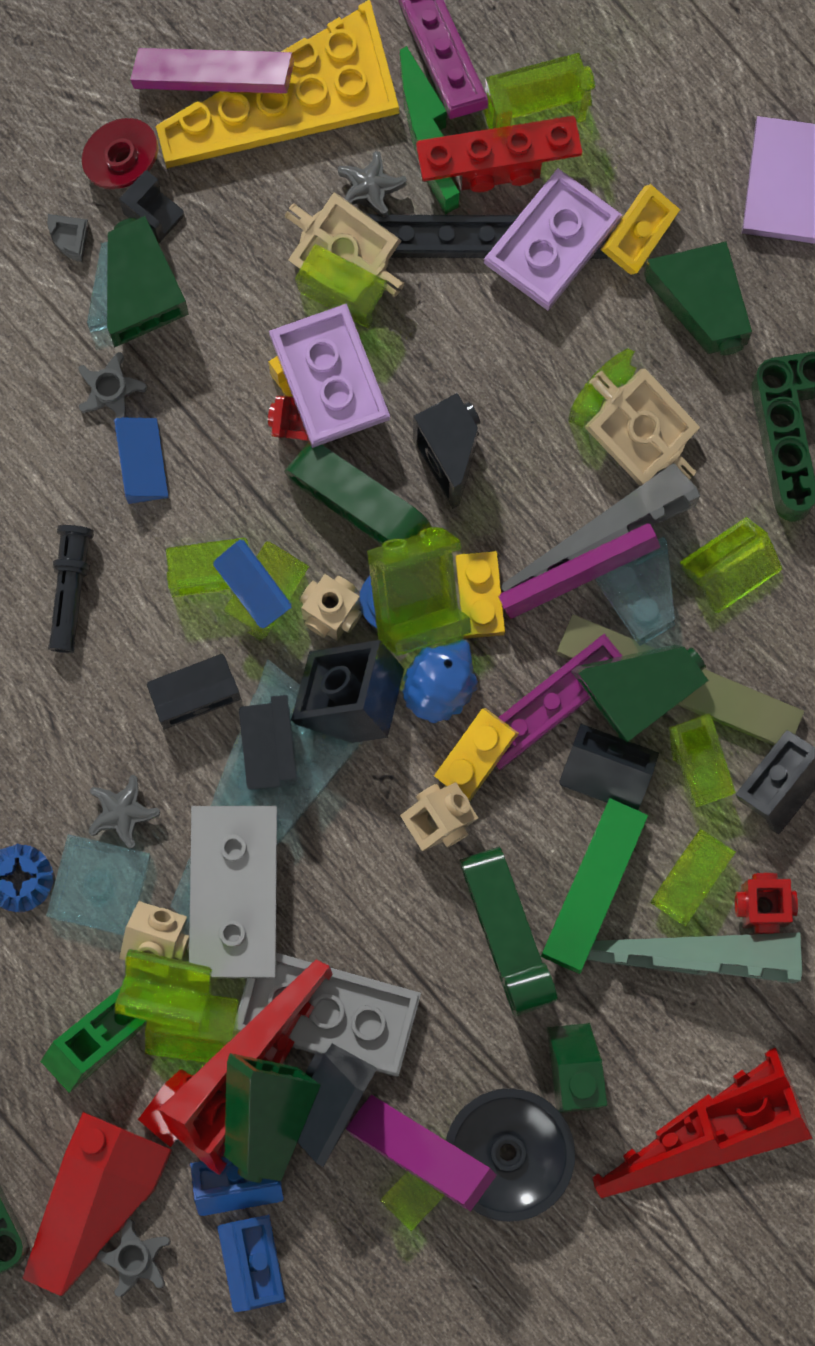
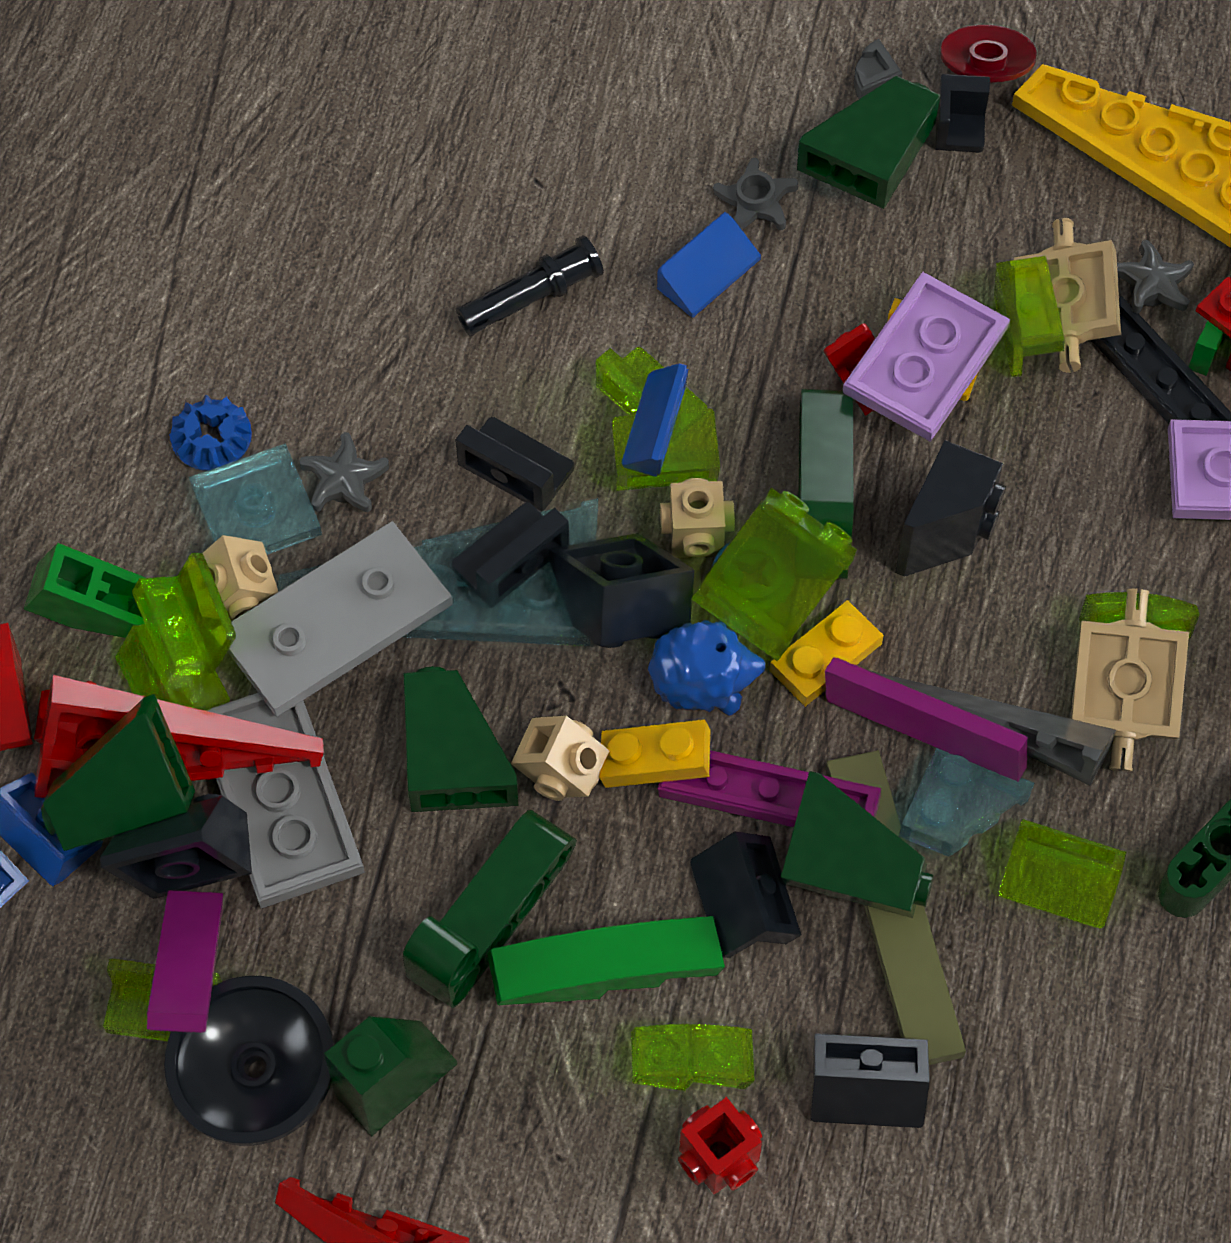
camera: 55 degrees right, 15 degrees down
(212, 70) = (1139, 73): tile -> none
(375, 879) = (451, 748): none -> dark green slope
(701, 759) = (823, 970): clear neon green slope -> none
(750, 956) = (649, 1168): sand green wedge -> none

